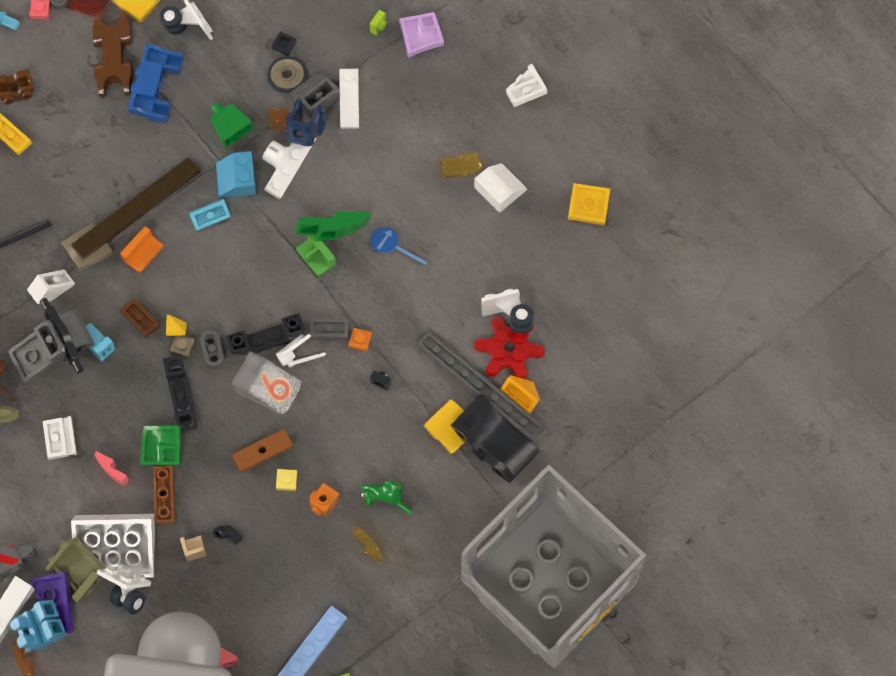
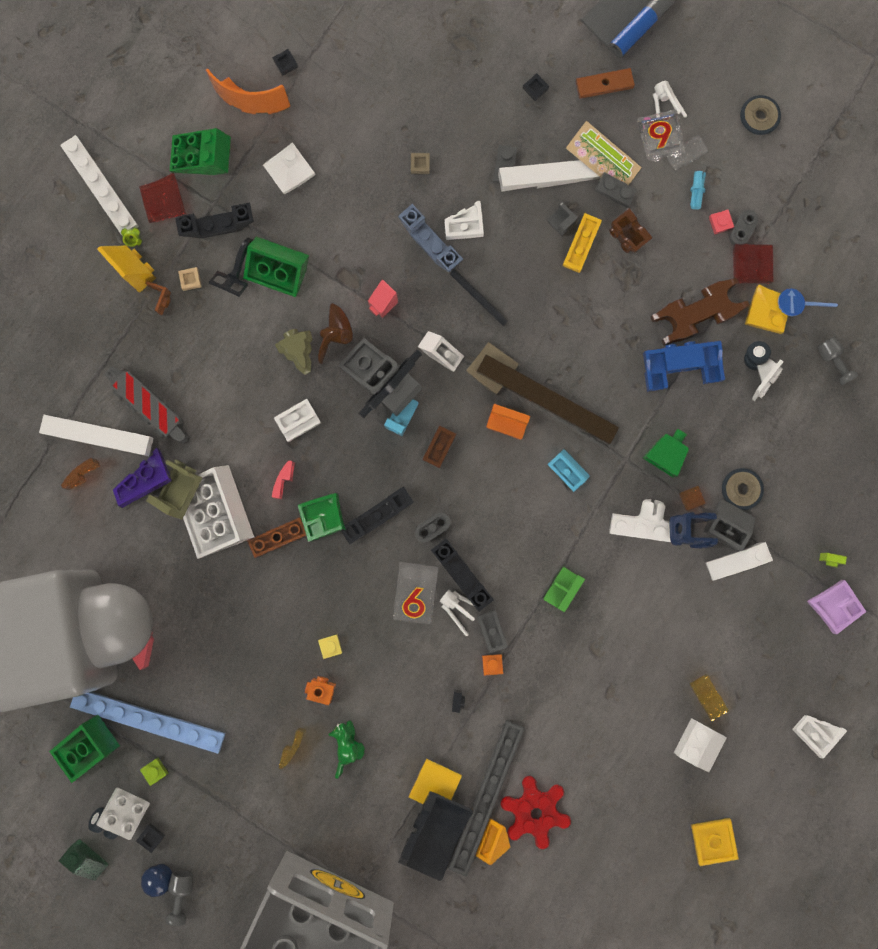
camera: 70 degrees right, 15 degrees up
(38, 627) = (111, 474): dark azure hips -> none
(124, 593) = (175, 539): plate -> none
(175, 326) = (442, 484): yellow slope -> none
(182, 346) = (426, 497): dark tan plate -> none
(193, 548) = (234, 585): tan panel -> none
(227, 531) = (261, 609): black arm -> none
(236, 175) = (616, 481): dark azure slope -> none
(273, 444) = (339, 605): dark orange tile -> none
(284, 43) = (774, 473): black plate -> none
(332, 228) = (596, 601): green slope -> none
(386, 240) = (603, 651): blue piece -> none
(520, 314) = (566, 817): plate -> none

